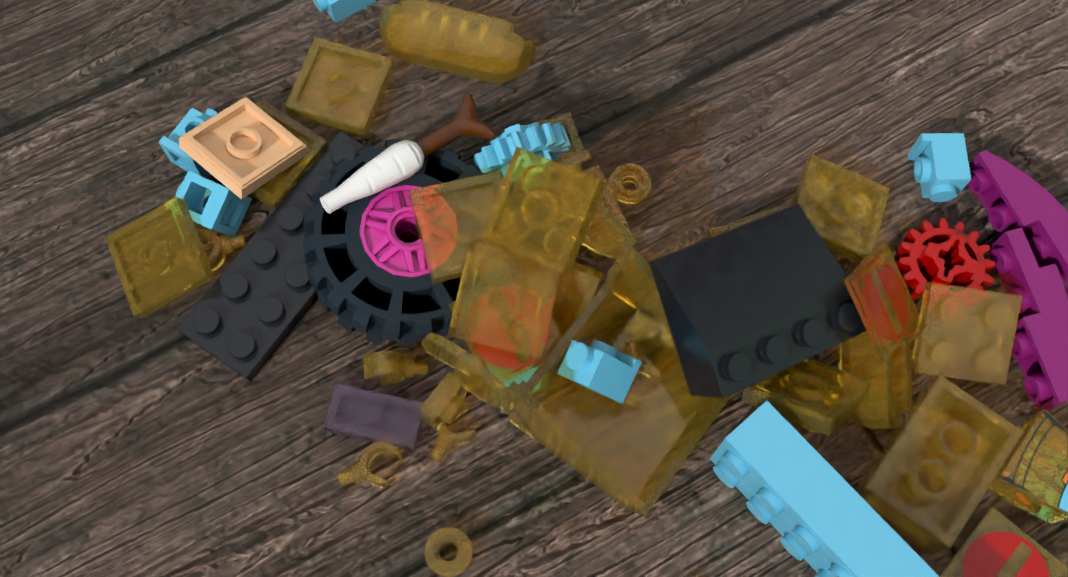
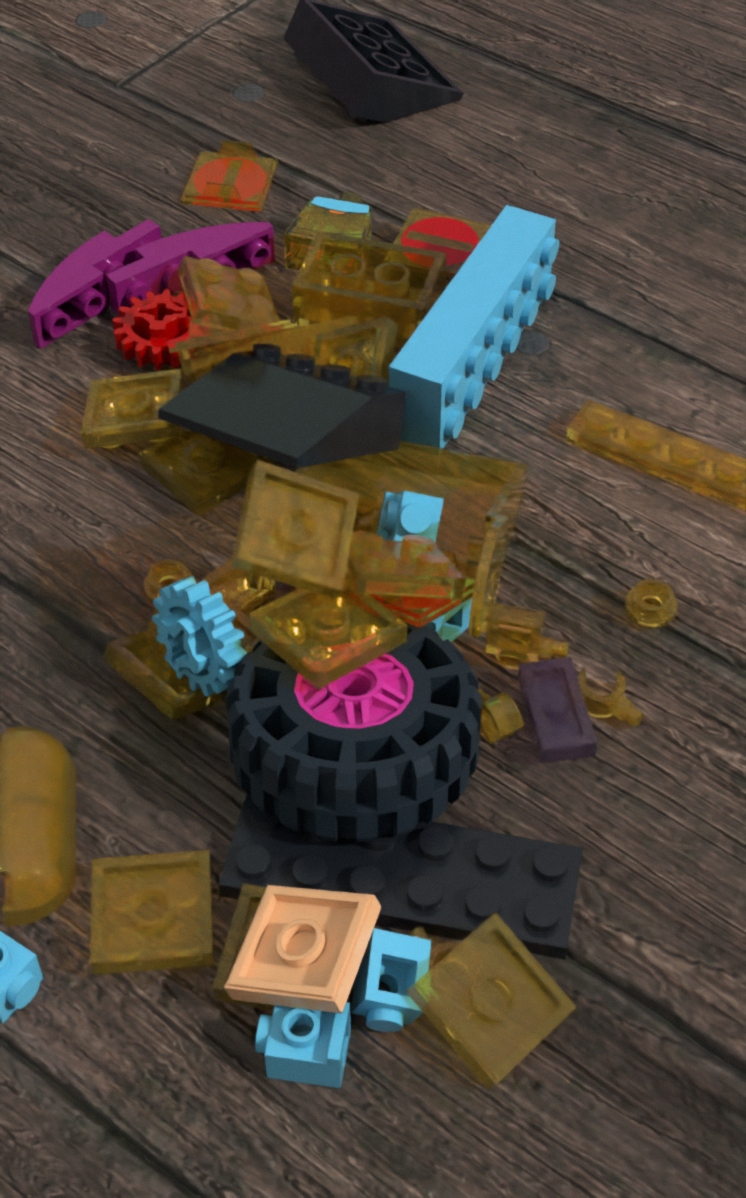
camera: 110 degrees left, 20 degrees down
(406, 158) = (273, 700): white piece -> none
(940, 165) = (50, 350): medium azure brick -> none

